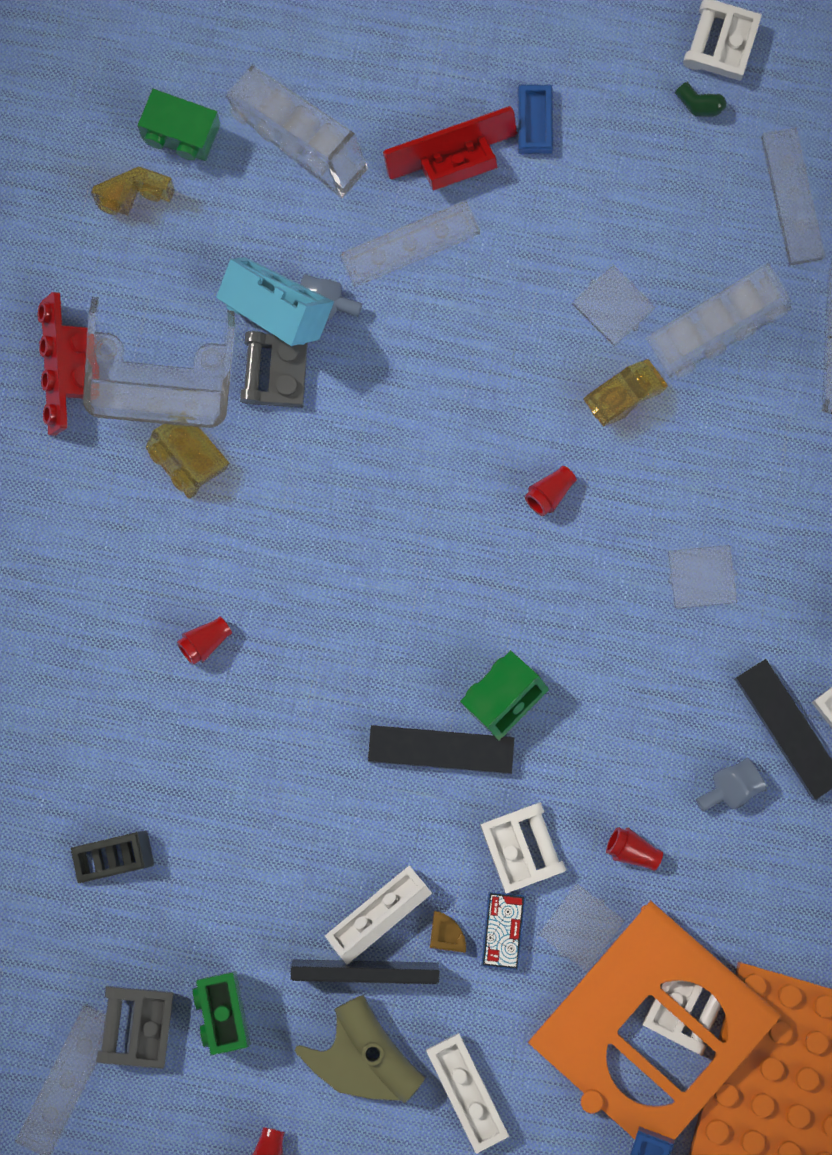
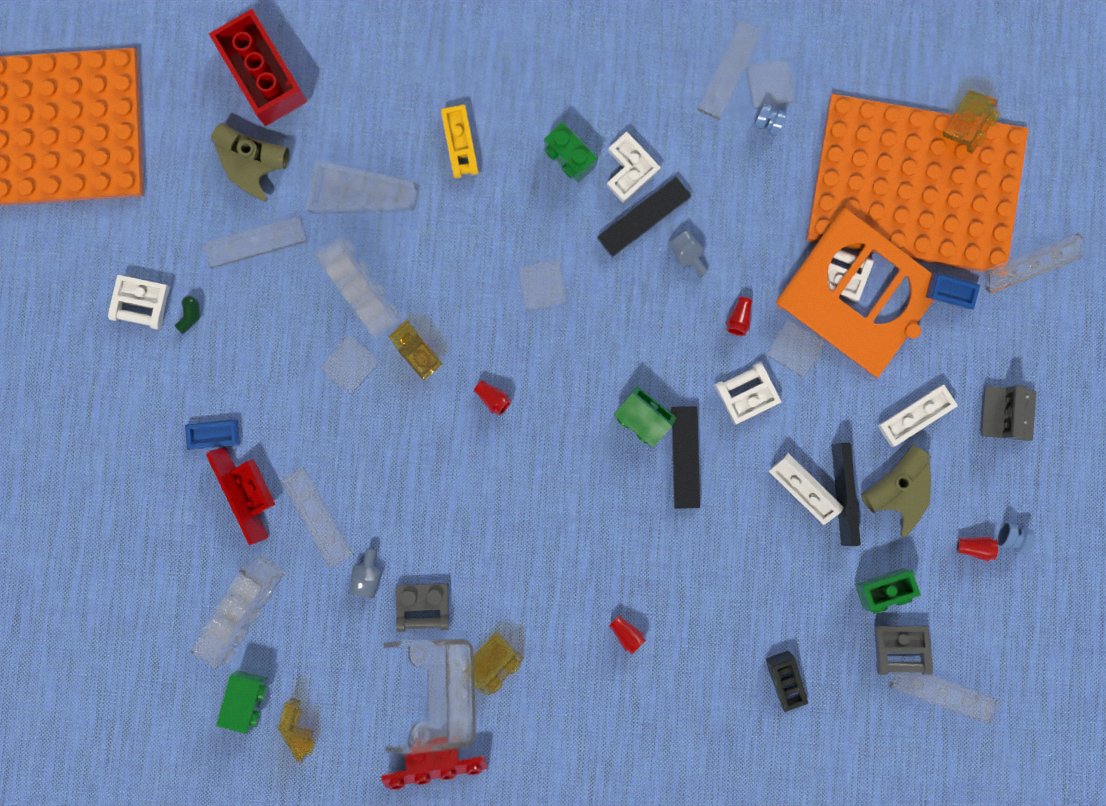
camera: 90 degrees left, 5 degrees up
(274, 302) = (374, 613): medium azure wedge -> none
(446, 934) = (812, 440): pearl gold tile -> none
(503, 930) = (805, 402): tile -> none

